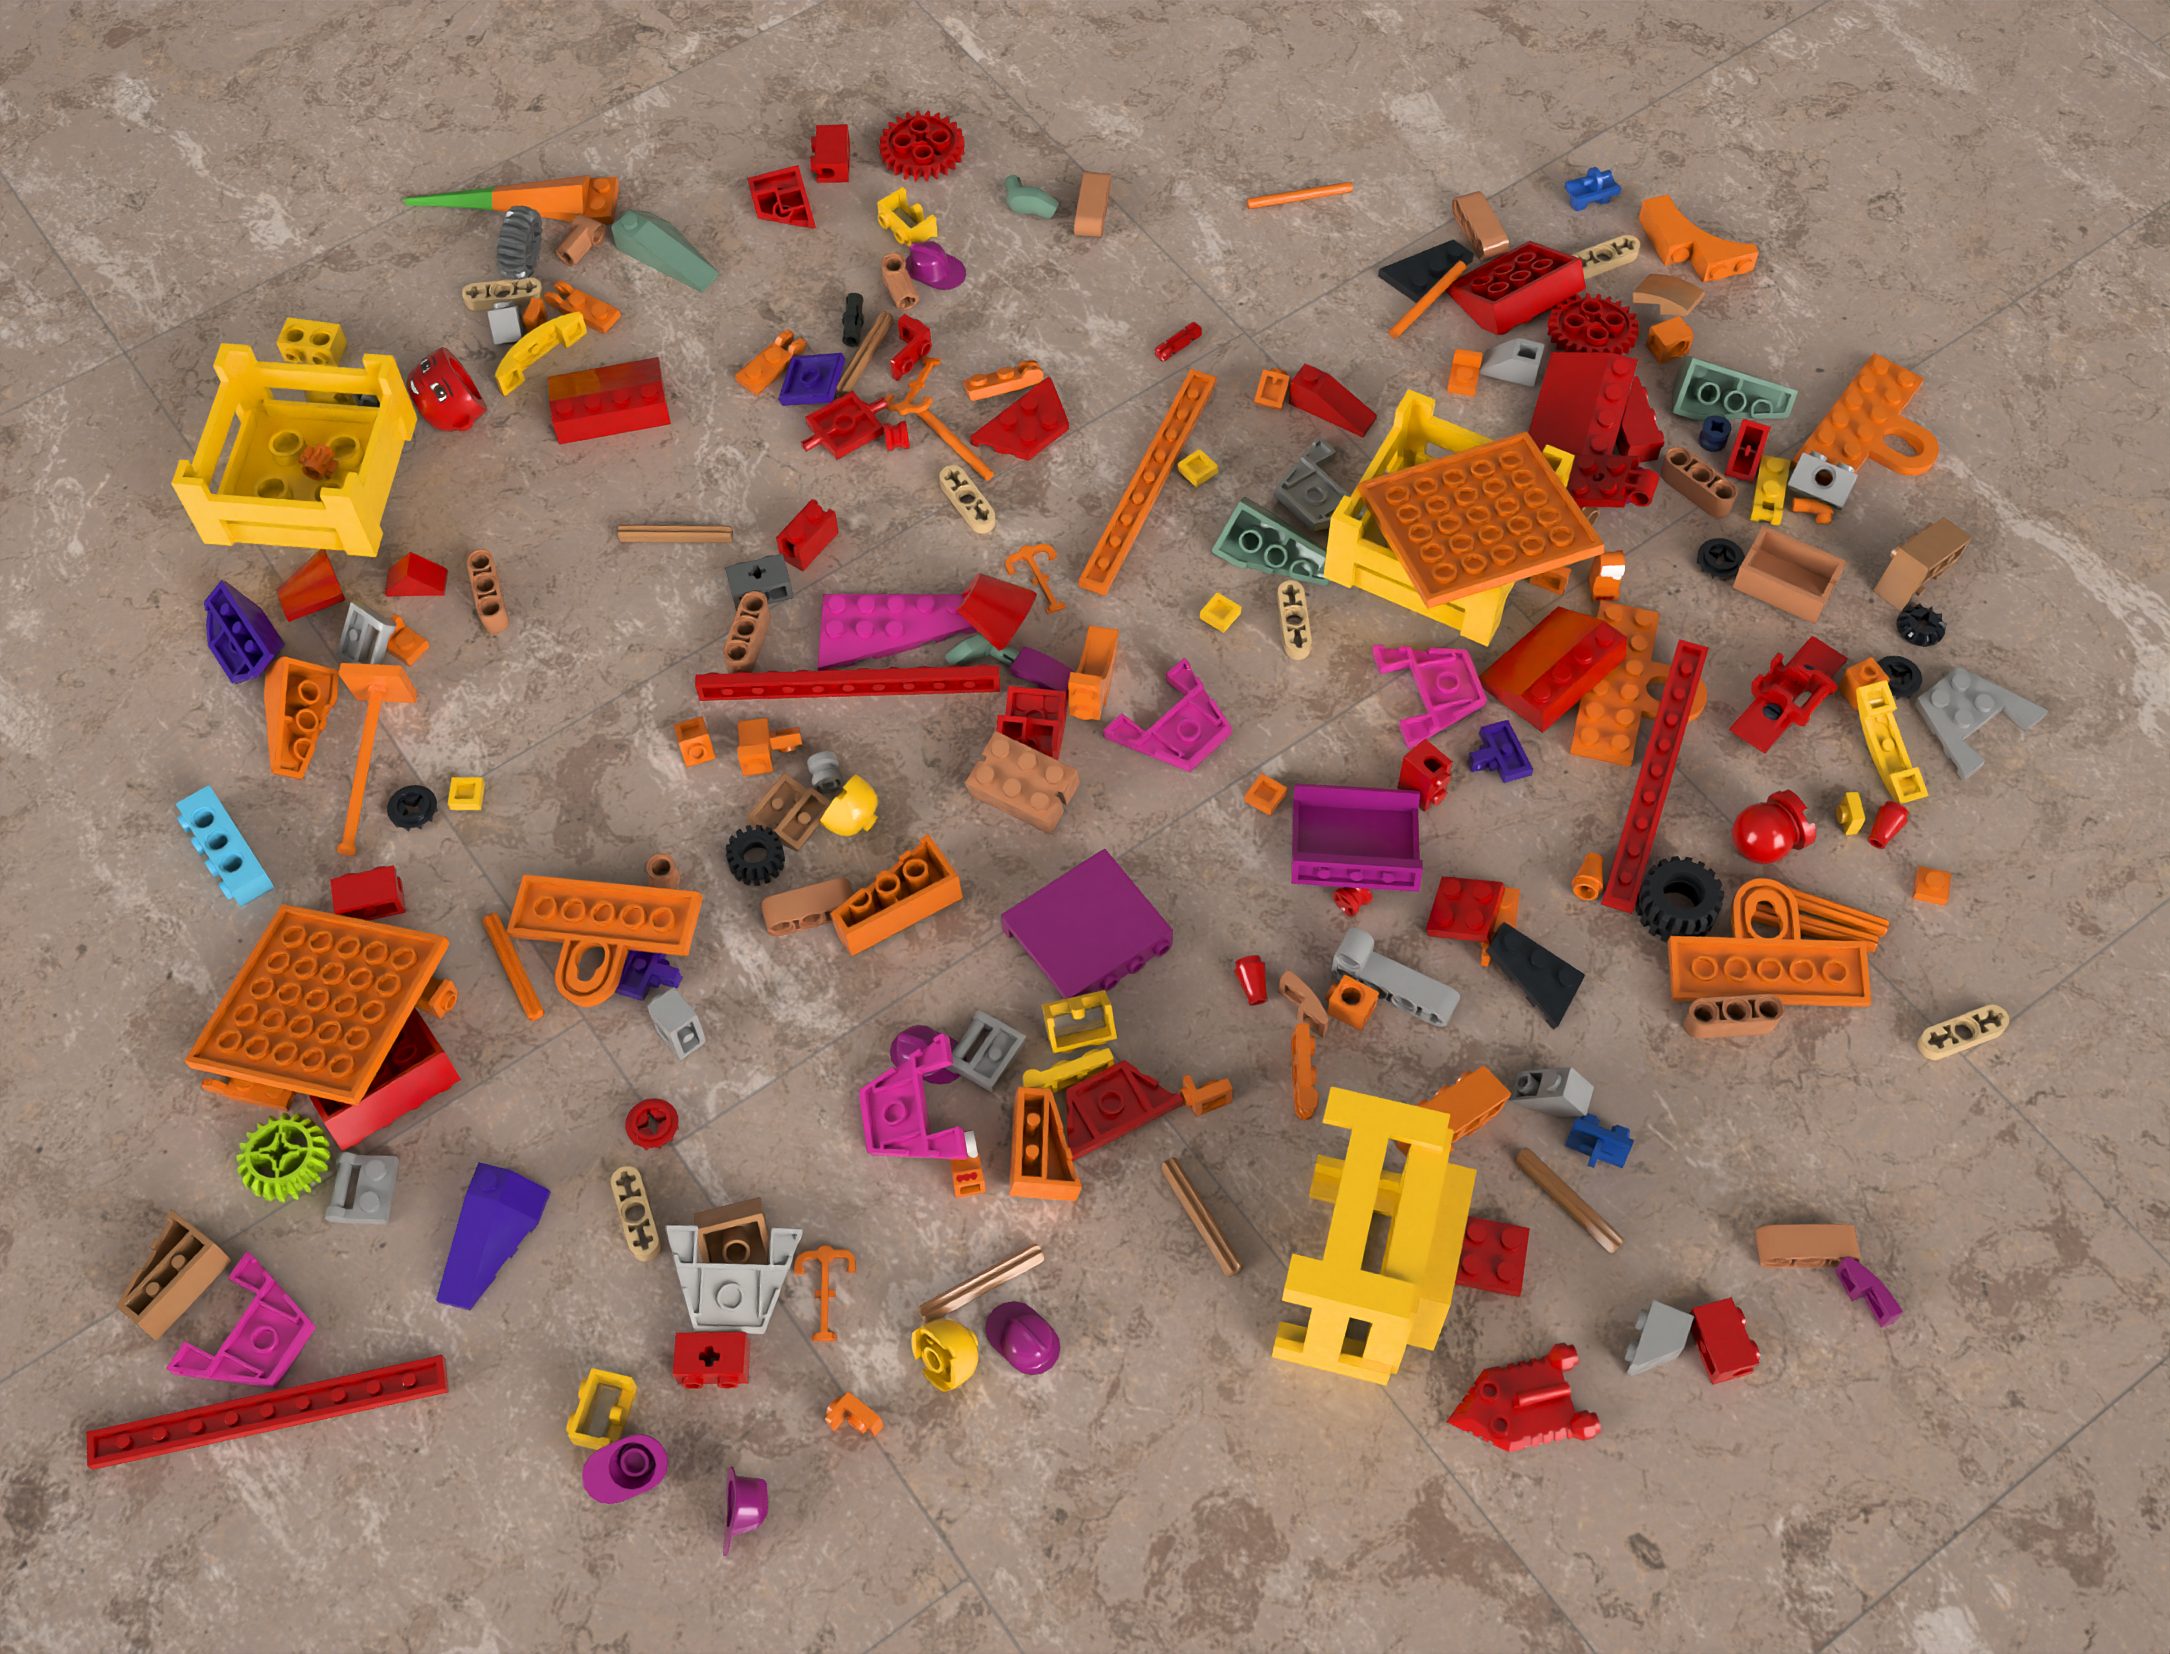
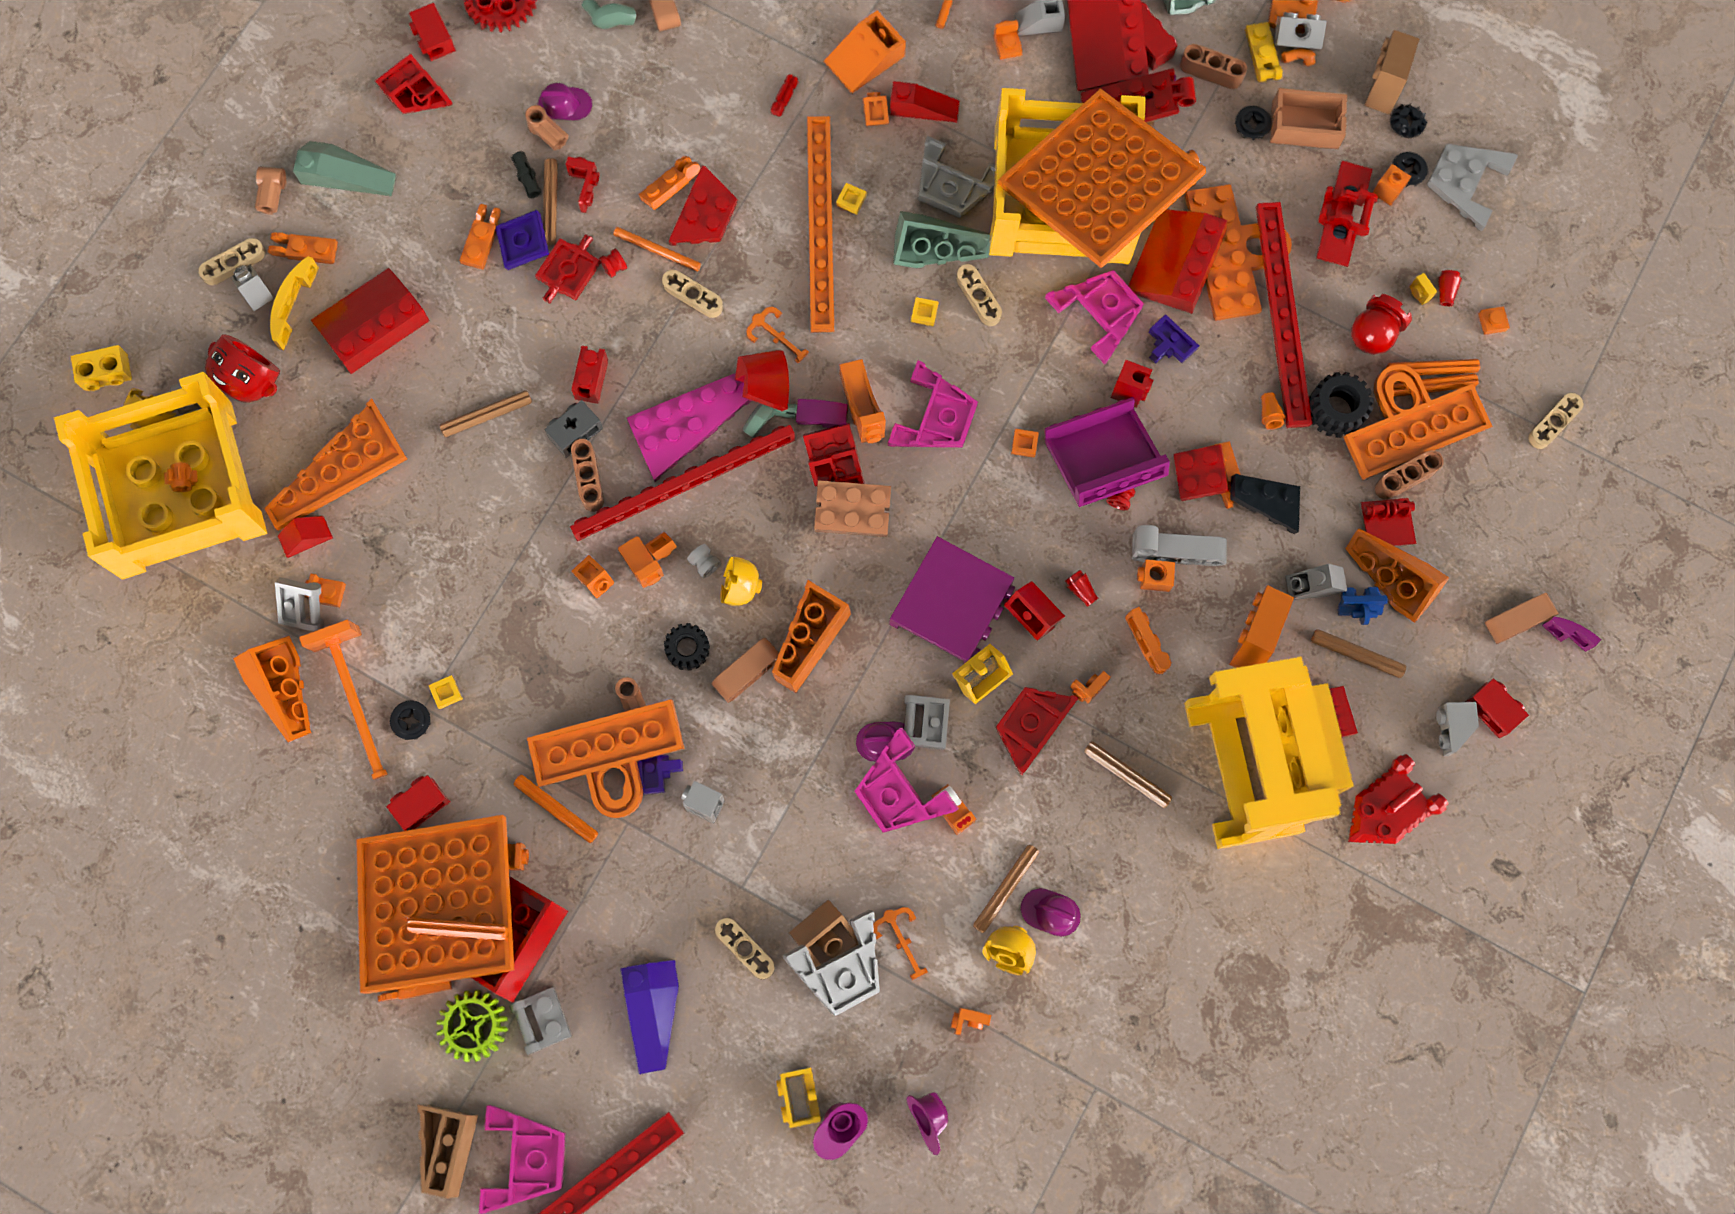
camera: 30 degrees left, 15 degrees up
(239, 634) = (196, 641): dark purple wedge -> none
(249, 879) = (253, 790): medium azure brick -> none
(310, 588) = (227, 579): red slope -> none
(324, 1032) = (457, 928): none -> orange axle
(487, 591) = (360, 515): nougat beam -> none
(500, 524) = (343, 464): none -> orange wing
(519, 242) = (226, 215): dark grey gear -> none
(534, 315) = (271, 273): orange plate -> none
(551, 198) = (229, 158): orange plate -> none
(638, 1119) = (709, 880): red gear -> none
(698, 1347) = (864, 1014): red brick -> none
(790, 811) = (693, 601): medium nougat slope -> none
(905, 221) = (522, 70): yellow window -> none
(905, 406) = (606, 236): orange piece -> none
(1039, 1153) = (1000, 778): orange wedge -> none
(1068, 1073) = (990, 714): yellow plate -> none
(1179, 977) = (1034, 610): none -> red brick
(1292, 328) = (866, 52): none -> orange slope
(1310, 1008) = (1132, 593): nougat slope -> none
(1670, 1135) = (1402, 577): none -> orange wedge
(1681, 1063) = (1390, 520): none -> red hinge
(1714, 433) = (1208, 26): dark blue wheel -> none
(1747, 450) = (1236, 27): red slope -> none
(1886, 743) = (1425, 227): yellow slope -> none

